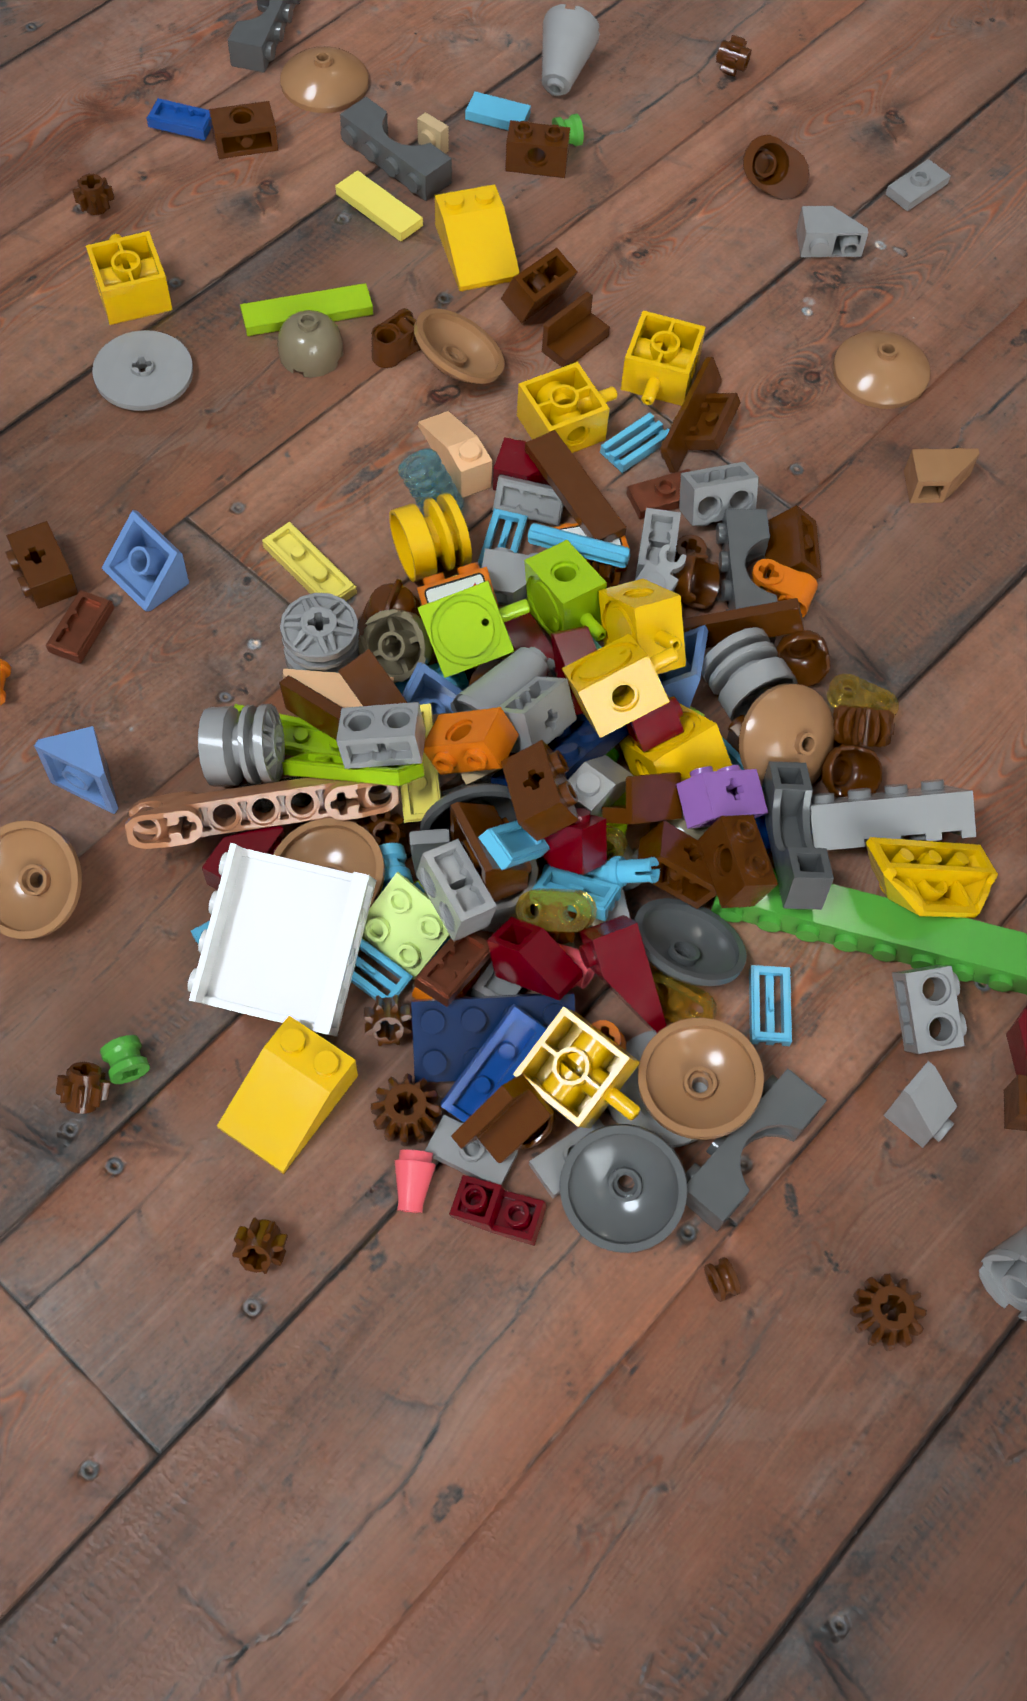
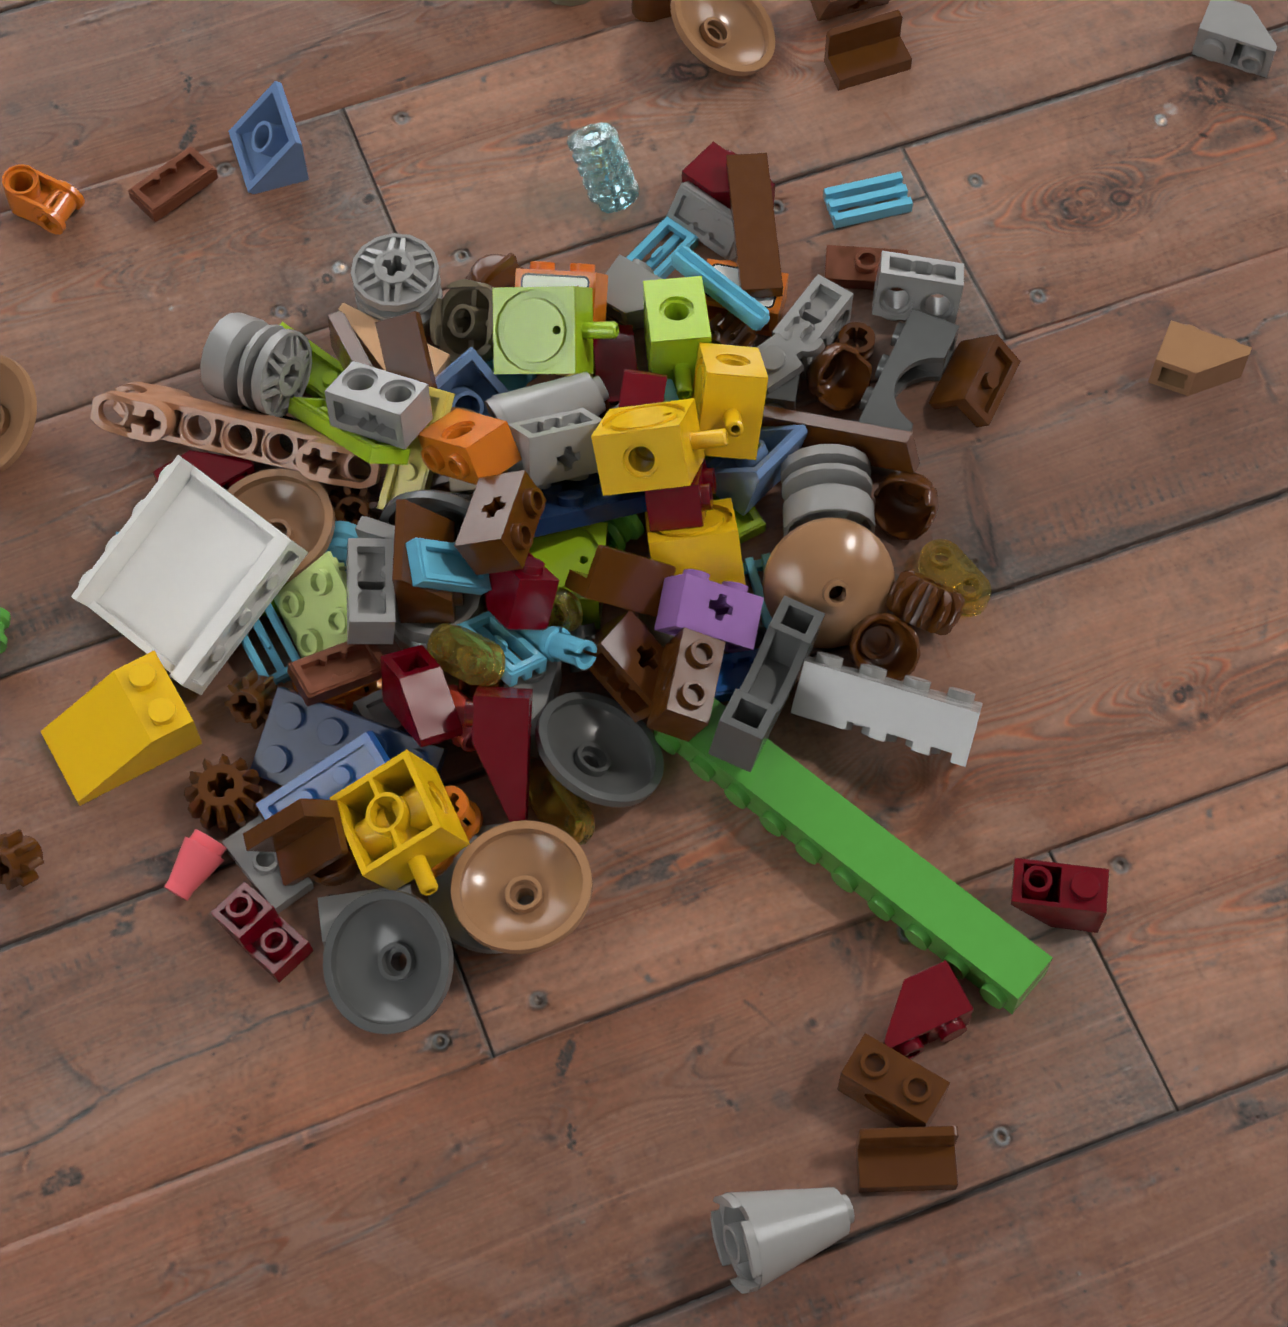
camera: 30 degrees right, 0 degrees up
(42, 565) = (166, 106): reddish brown brick -> none
(78, 766) = (94, 324): medium blue slope -> none
(307, 563) = (438, 207): light yellow tile -> none
(435, 536) = (571, 220): yellow wheel -> none
(459, 451) = (661, 142): light nougat slope -> none
(565, 403) = (802, 134): yellow piece -> none
(599, 784) = (573, 543): light grey slope -> none
(662, 358) = (946, 116): yellow piece -> none
(701, 419) = (953, 196): reddish brown bracket -> none
(722, 1279) = (441, 1098): reddish brown bush -> none
(770, 1036) = (640, 885): medium azure tile -> none
(782, 1112) = (599, 961): dark grey arch -> none
(785, 583) = (936, 423): orange piece -> none
(881, 369) = (1206, 231): medium nougat dish -> none
(906, 1314) = (597, 1223): reddish brown gear -> none
(918, 1012) = (804, 923): light grey brick -> none
(923, 1107) = (747, 1021): light grey slope -> none
(932, 875) = (899, 790): yellow wedge -> none

